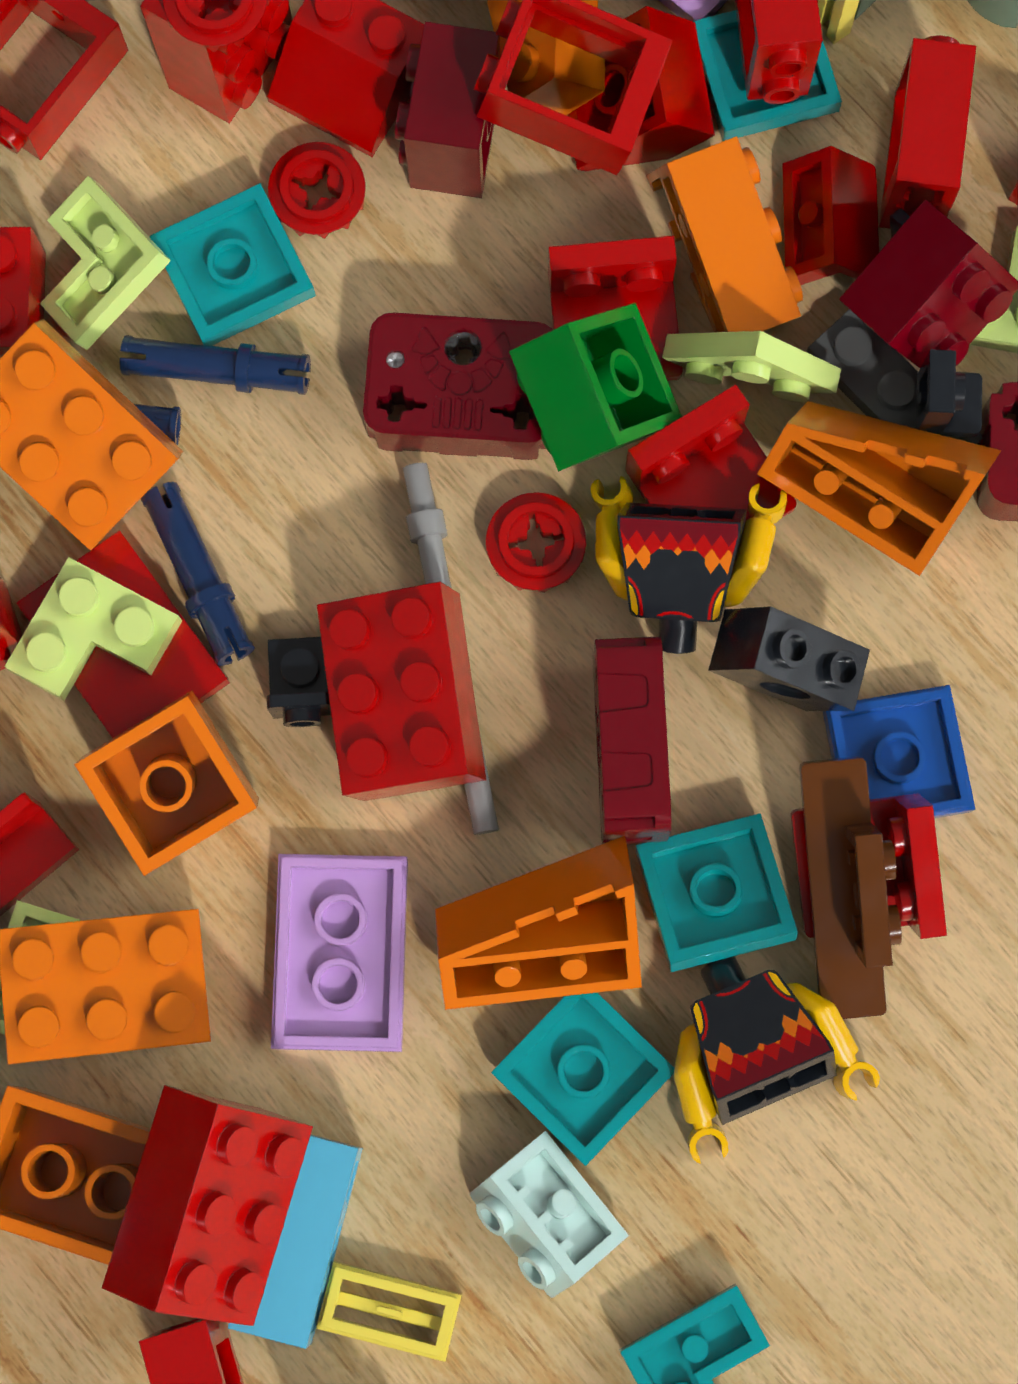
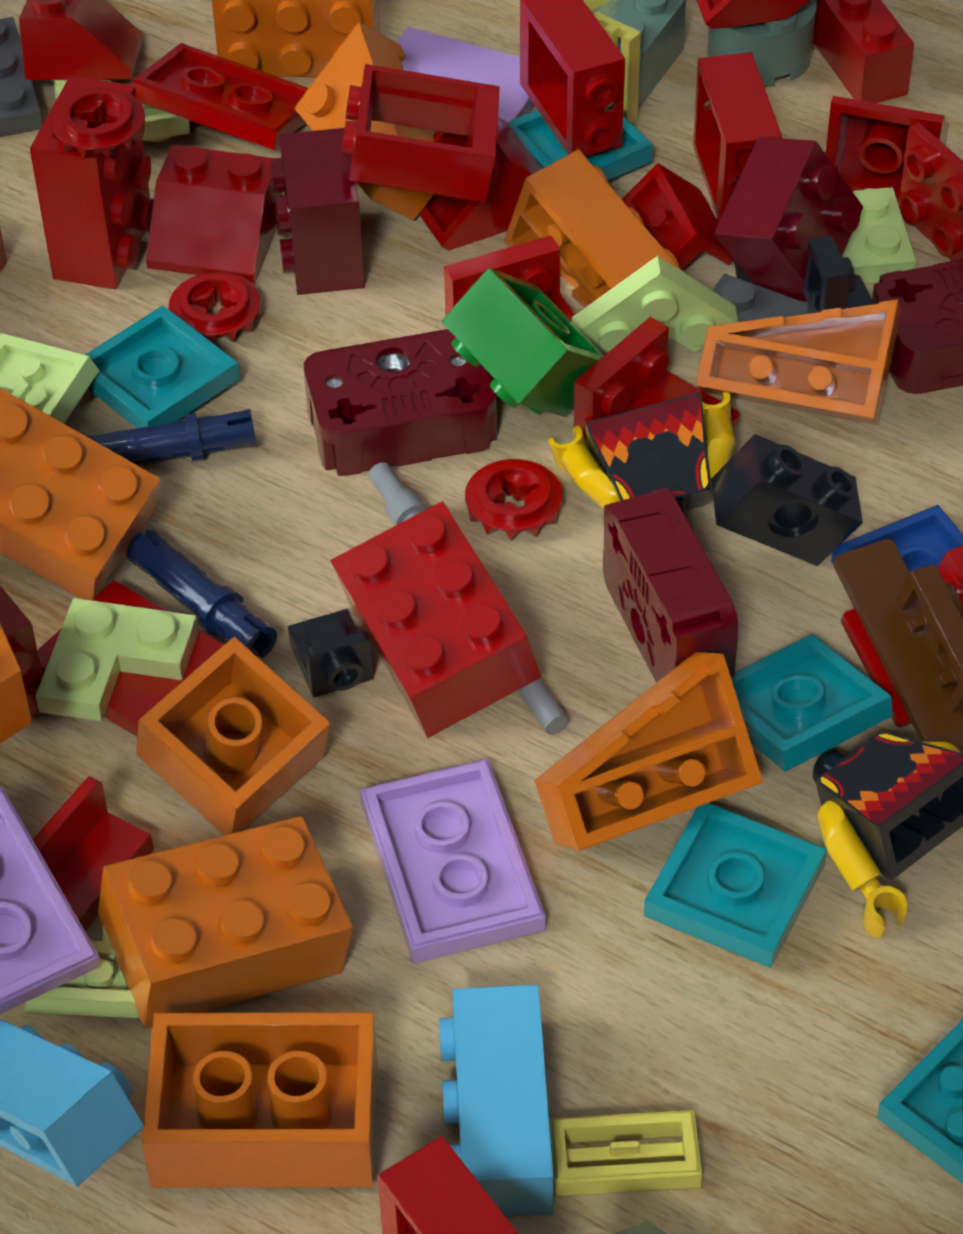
camera: 20 degrees left, 30 degrees down
(207, 1208) = (404, 1039): red brick -> none
(547, 1216) = (749, 1016): light aqua bracket -> none

